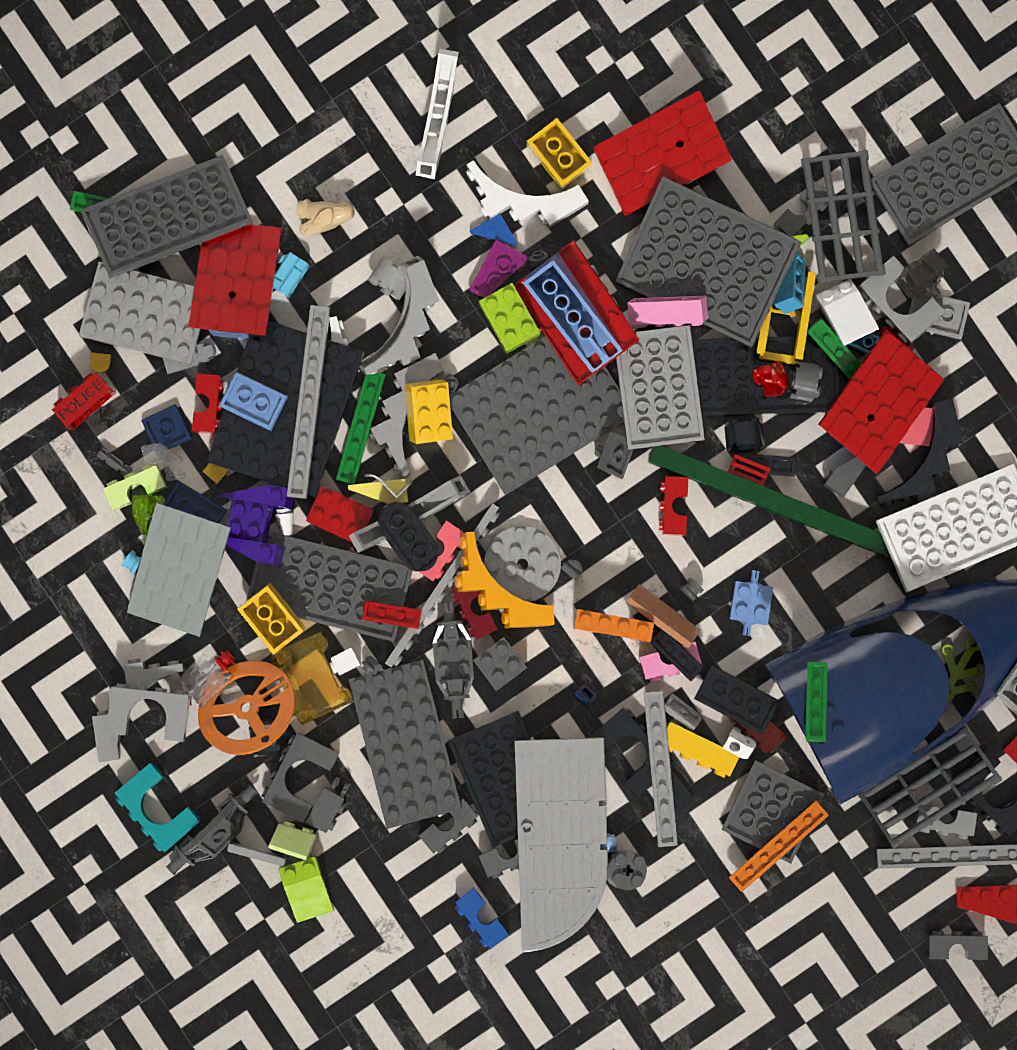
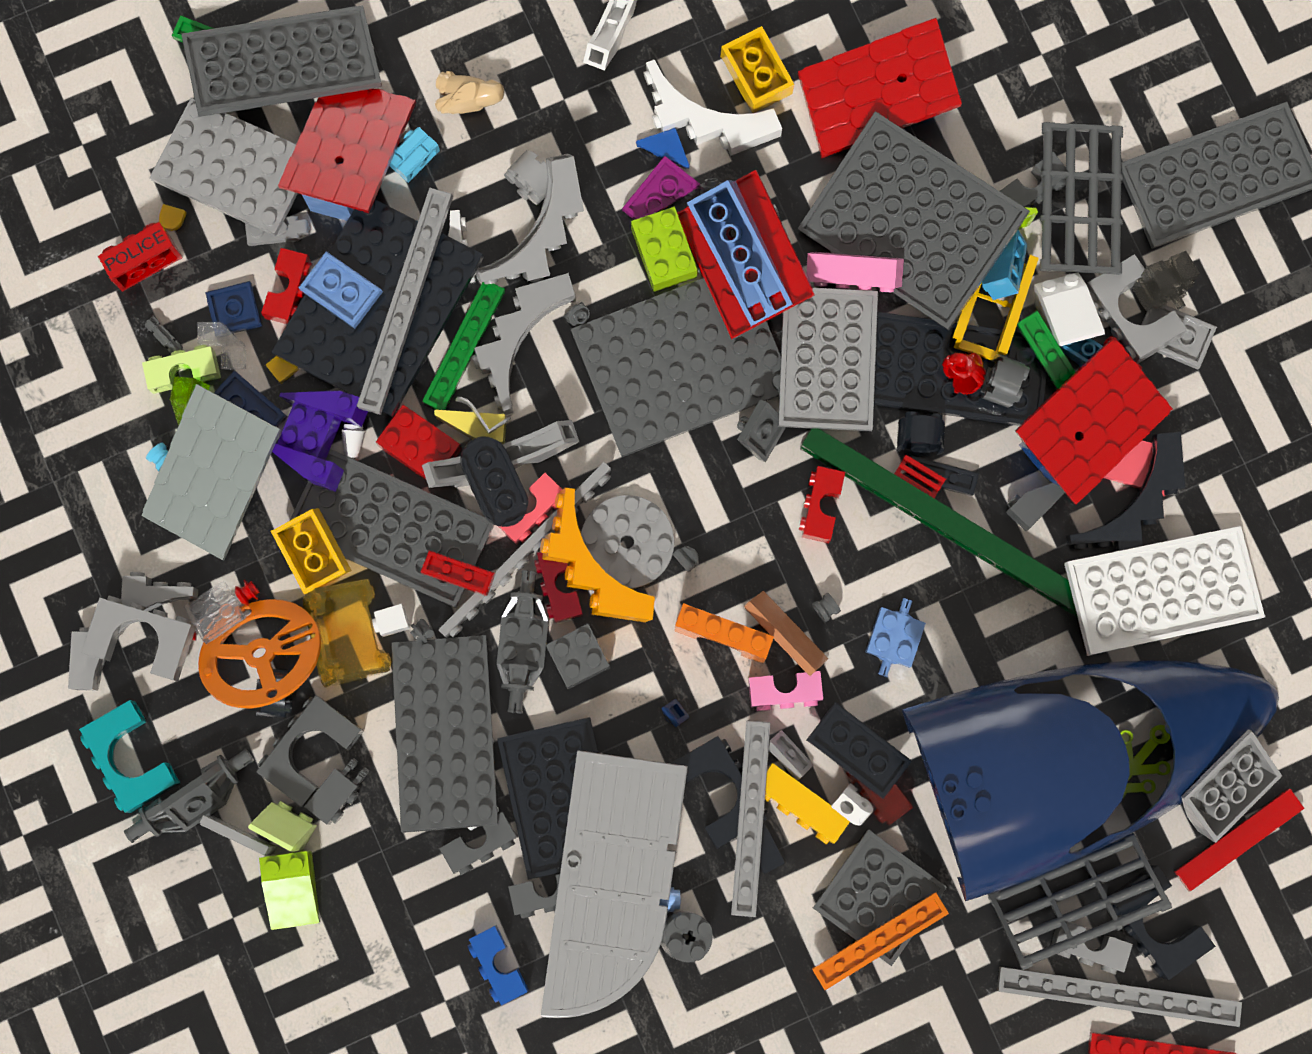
camera: 10 degrees right, 5 degrees down
(428, 411) = (547, 339): yellow brick -> none
(677, 655) = (795, 682): black tile -> none
(816, 701) = (961, 763): green plate -> none

